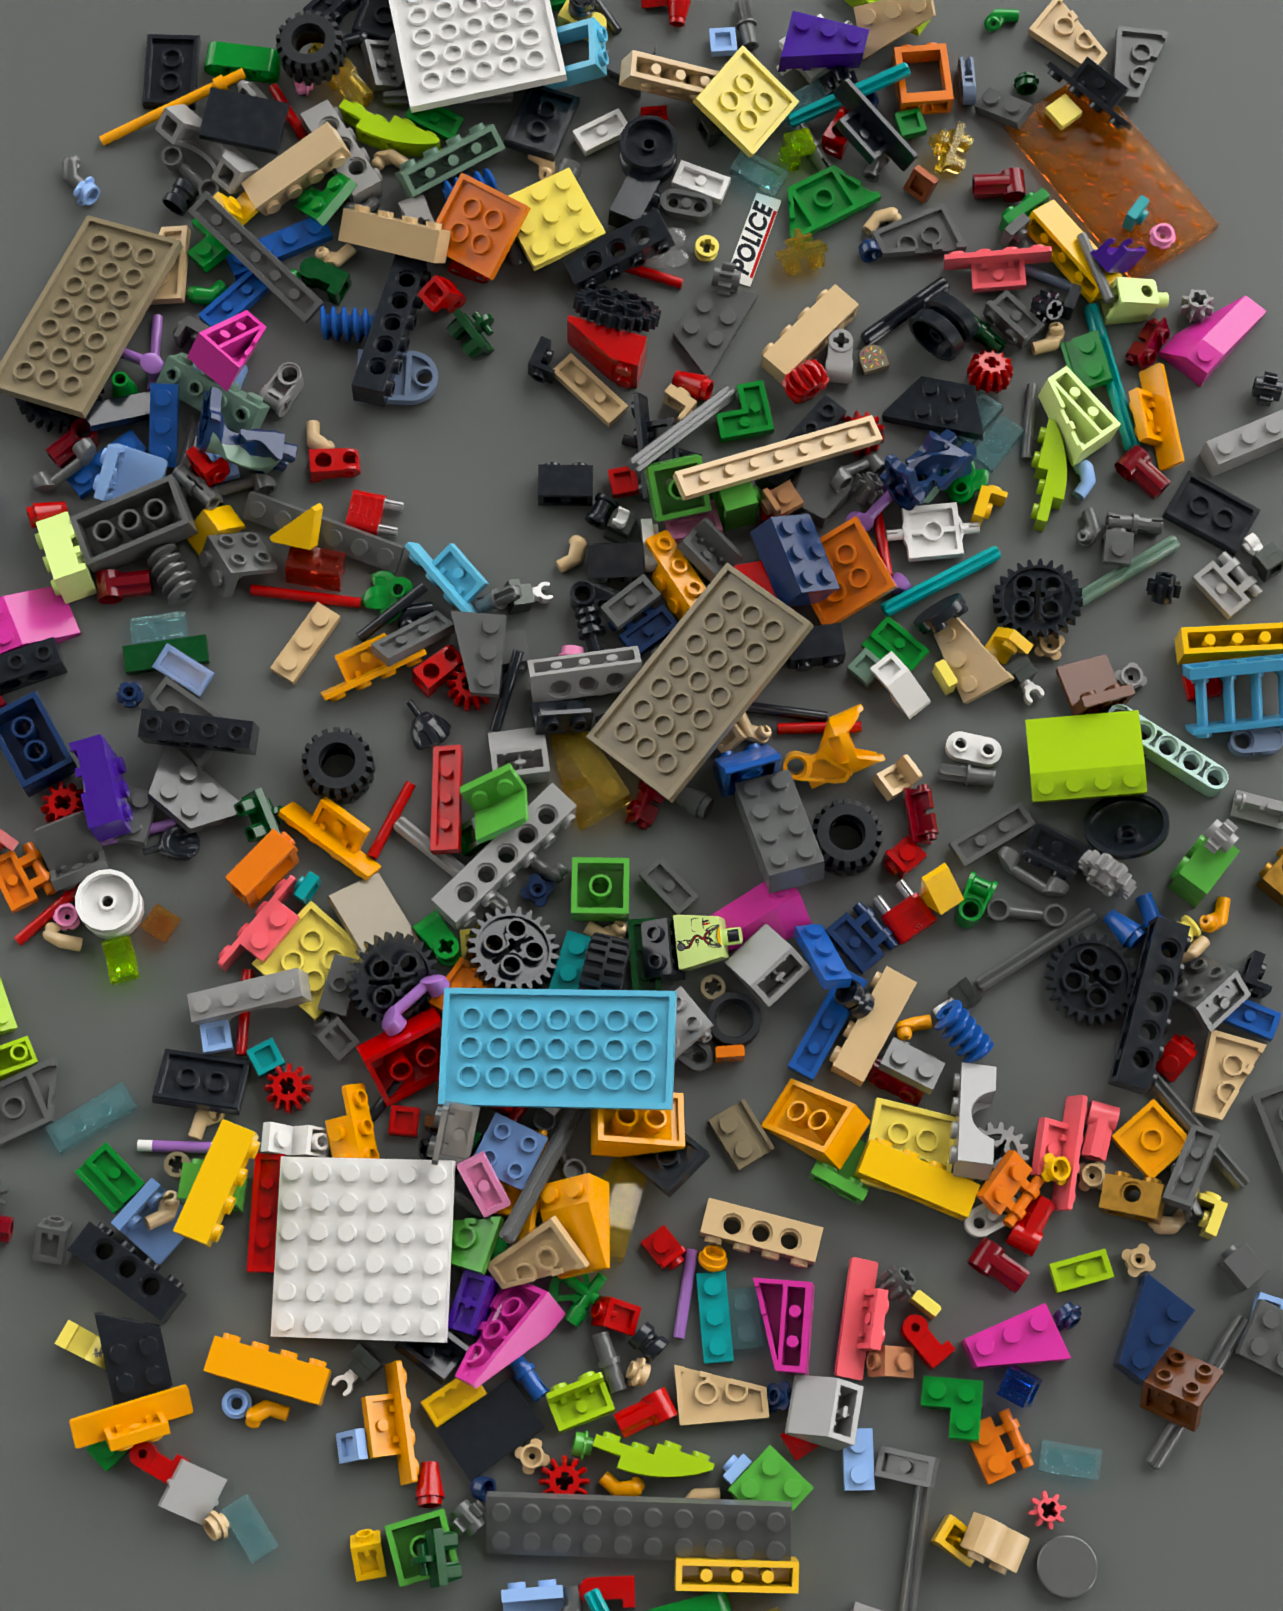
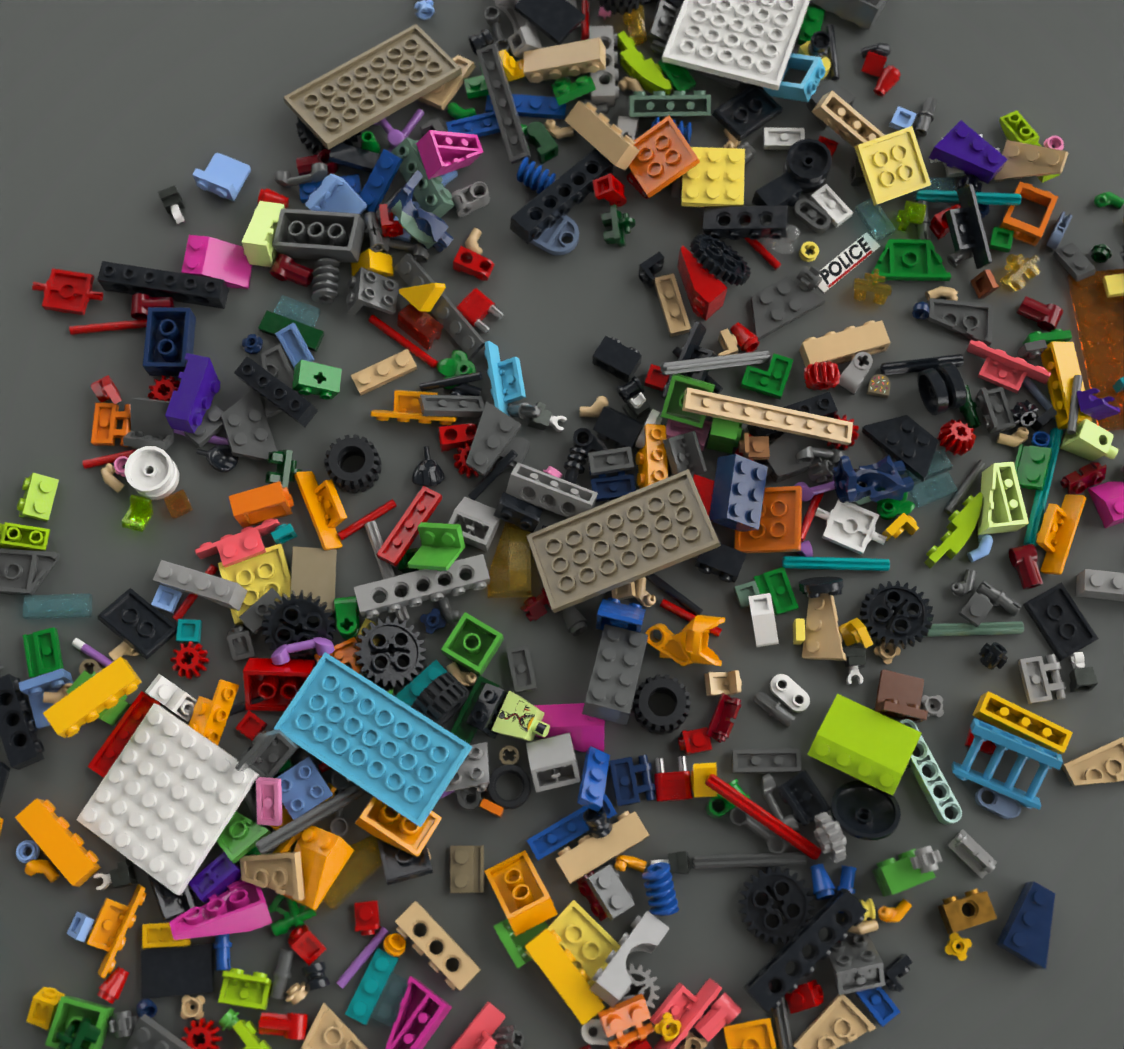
camera: 35 degrees right, 0 degrees up
(236, 692) = (316, 379): none -> brick
(1025, 893) = (763, 816): none -> red axle
(1079, 326) = (1040, 439): none -> blue hinge

